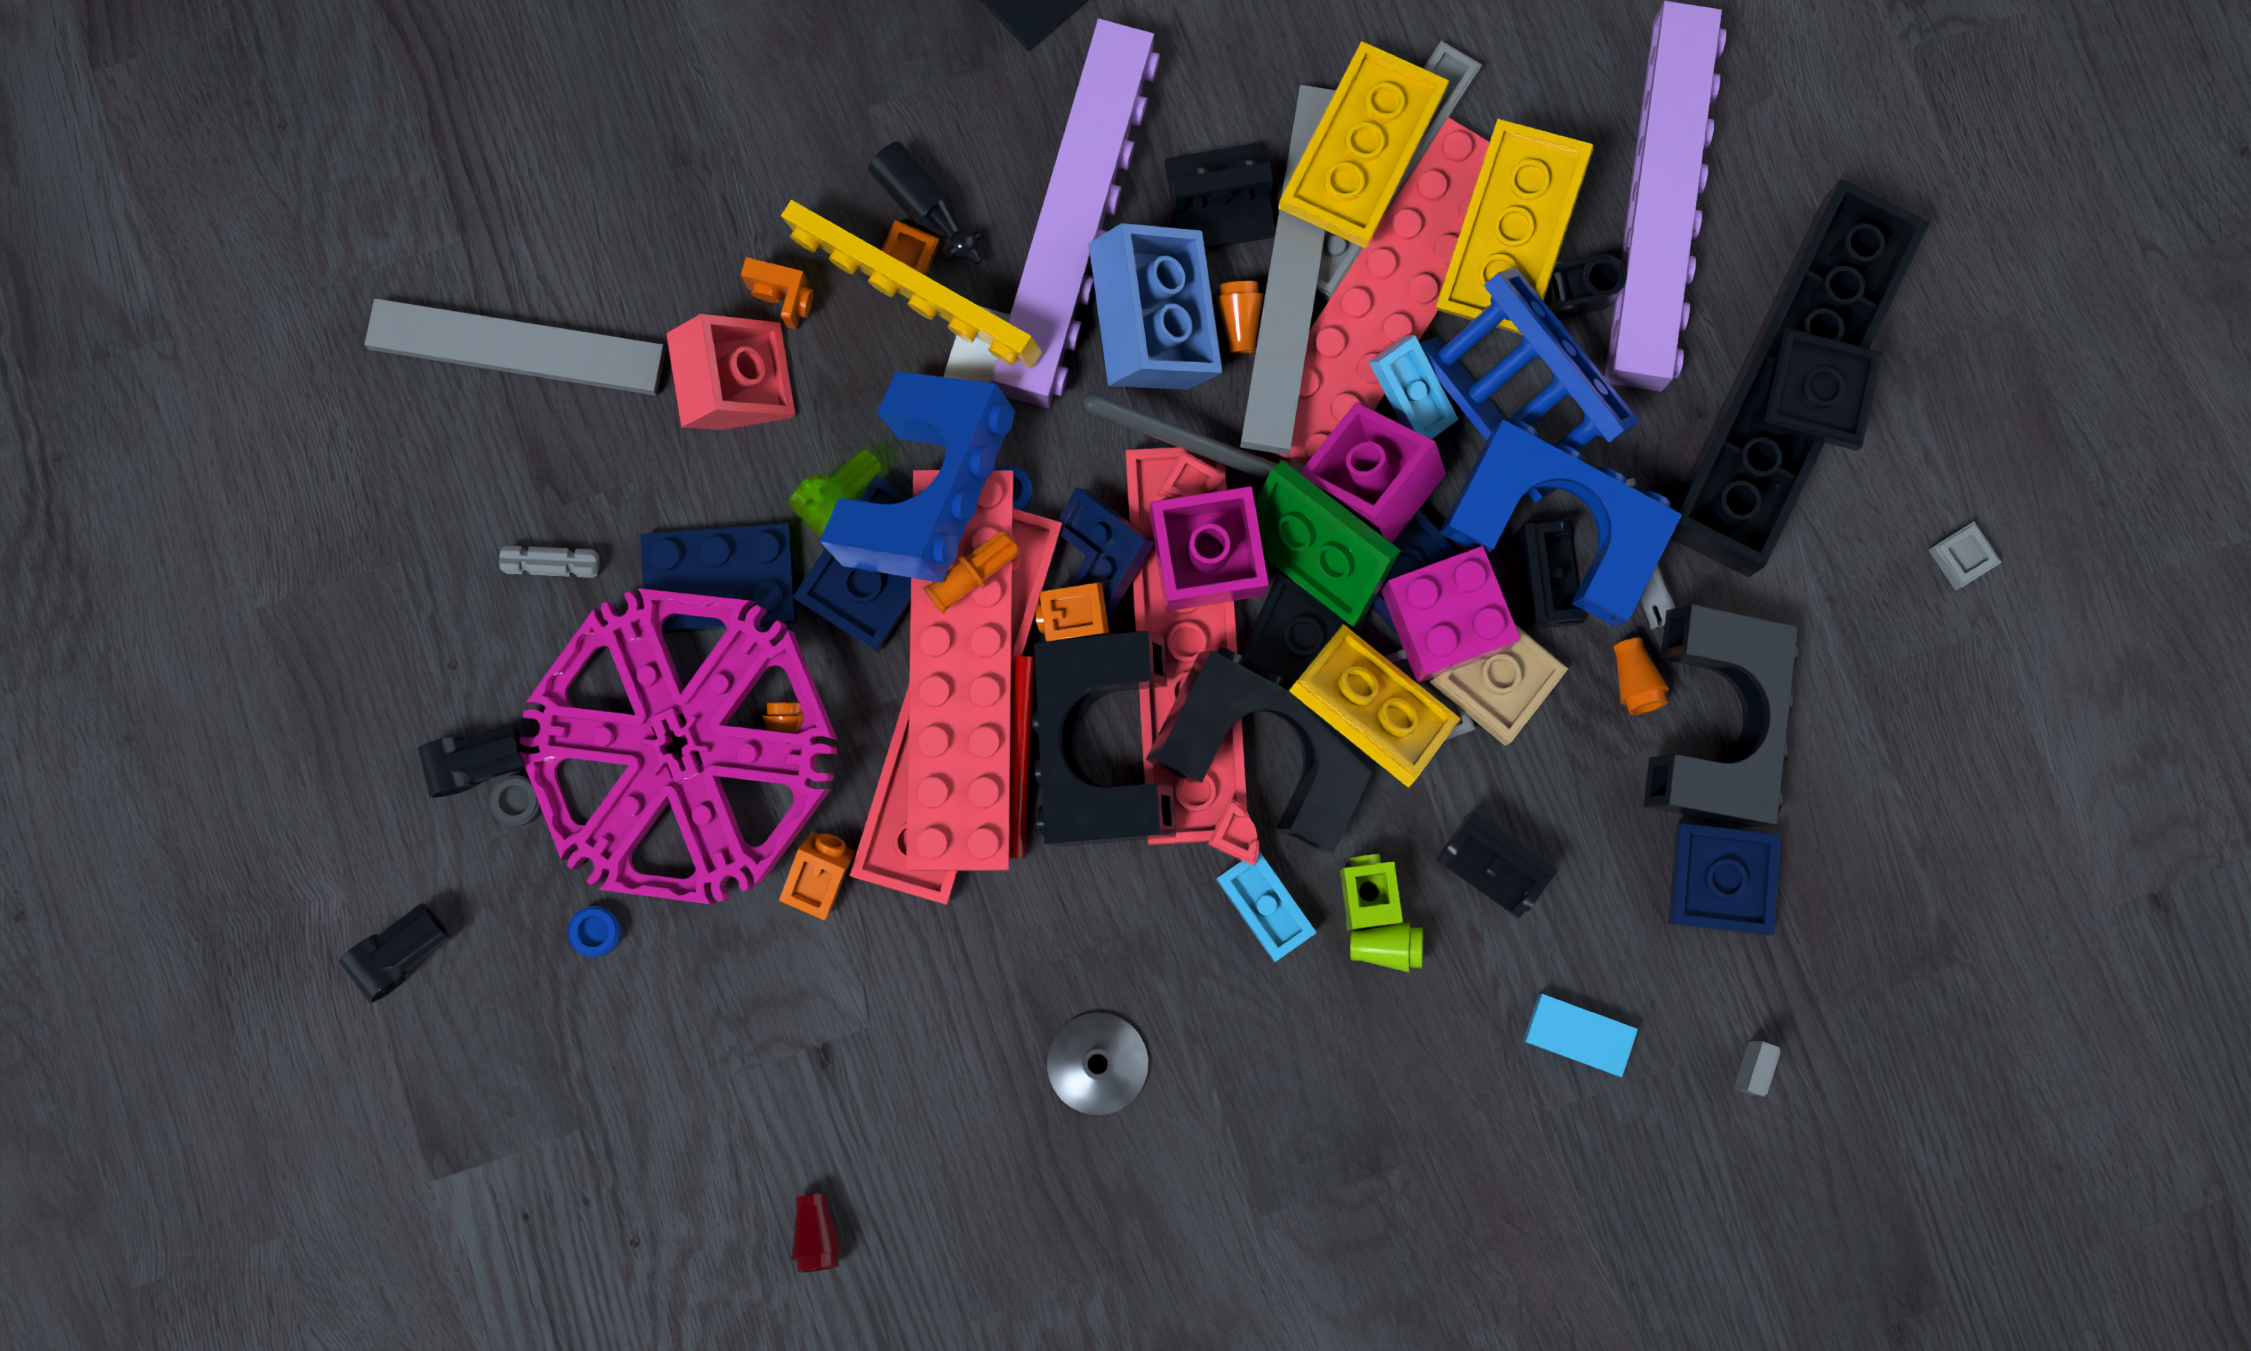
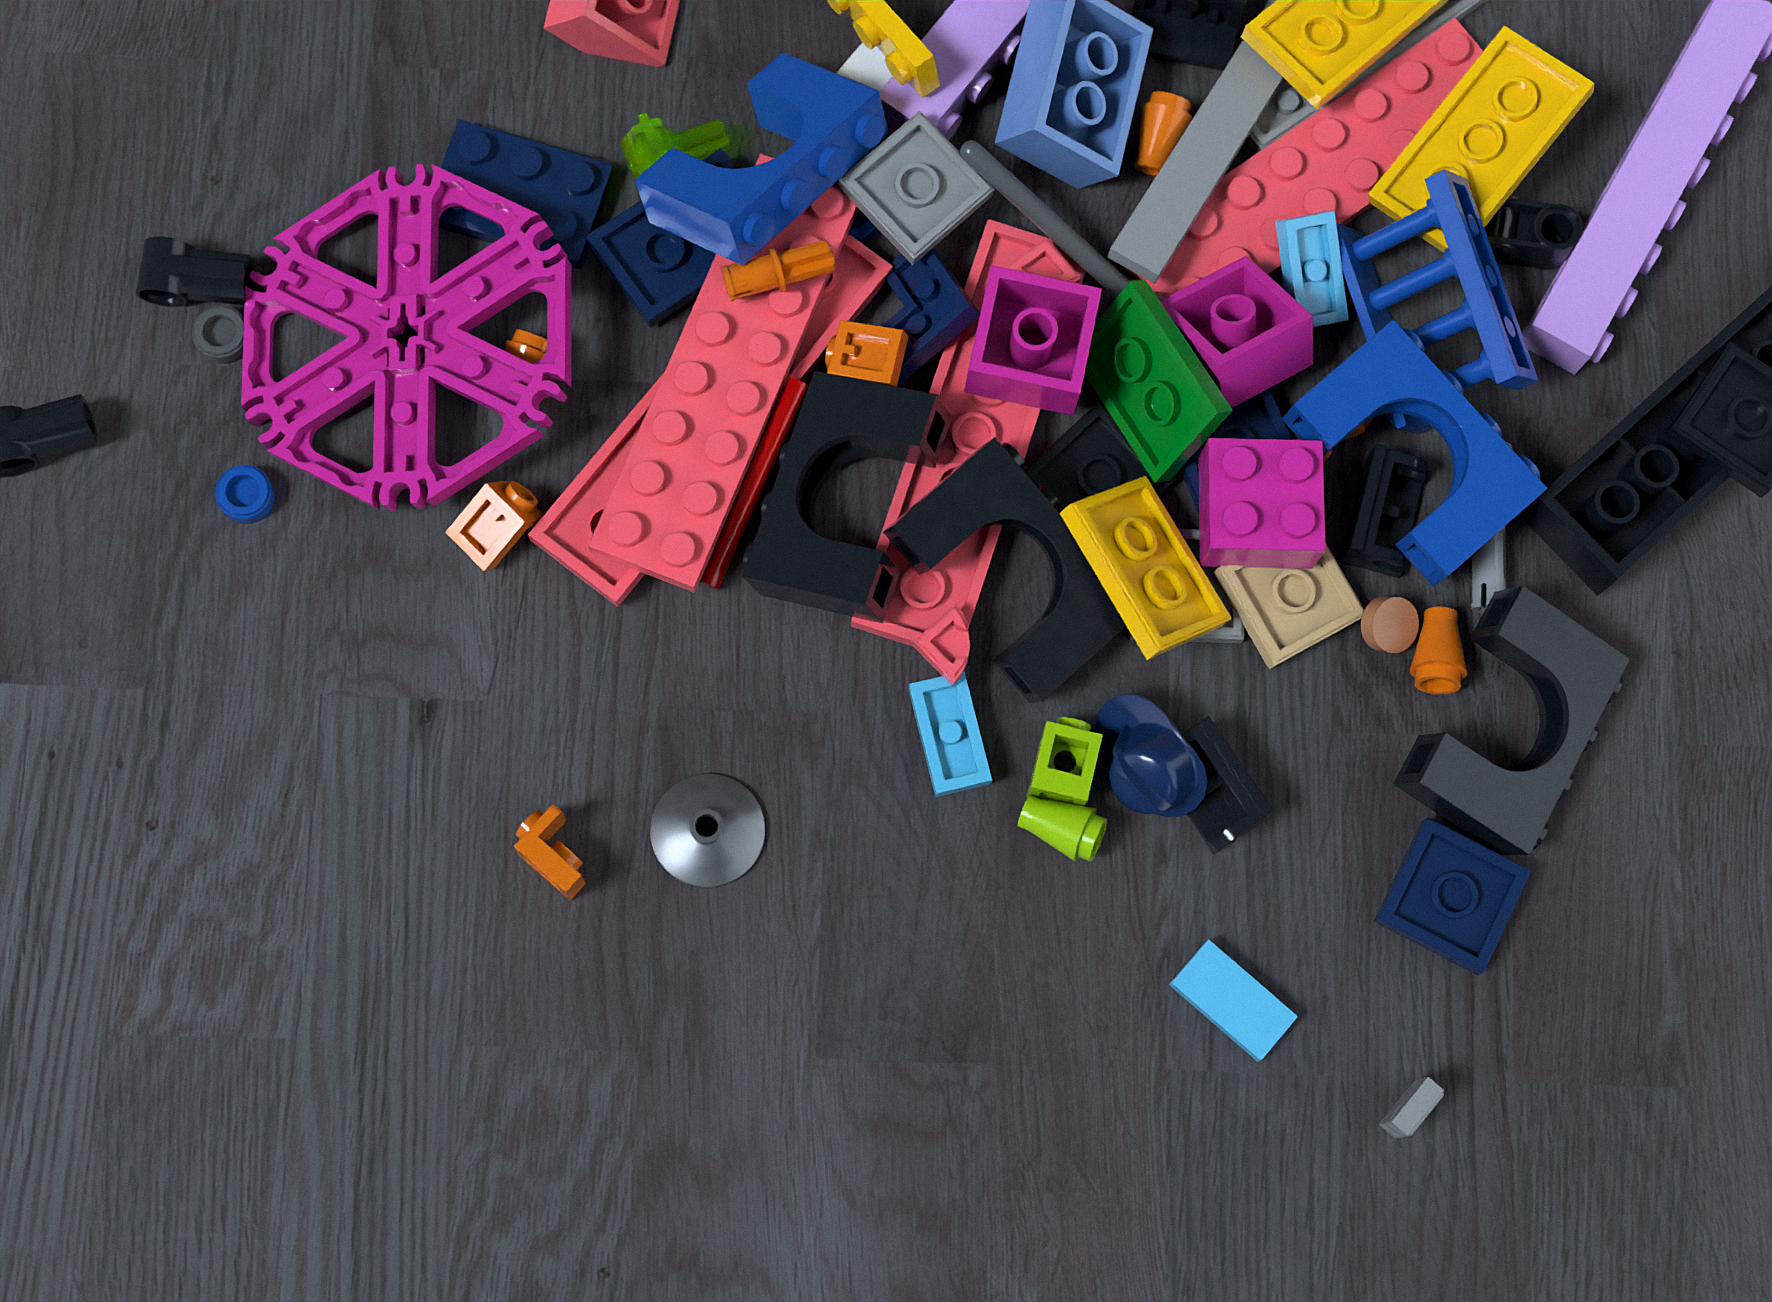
camera: 20 degrees right, 5 degrees down
(549, 561) = (356, 112): light grey axle -> none
(815, 1236) = (338, 889): dark red cone -> none
(985, 1145) = (553, 863): none -> orange bracket
(1057, 450) = (915, 187): none -> light grey tile
(1439, 865) = (1149, 758): none -> dark blue piece
(1590, 670) = (1389, 624): none -> nougat tile

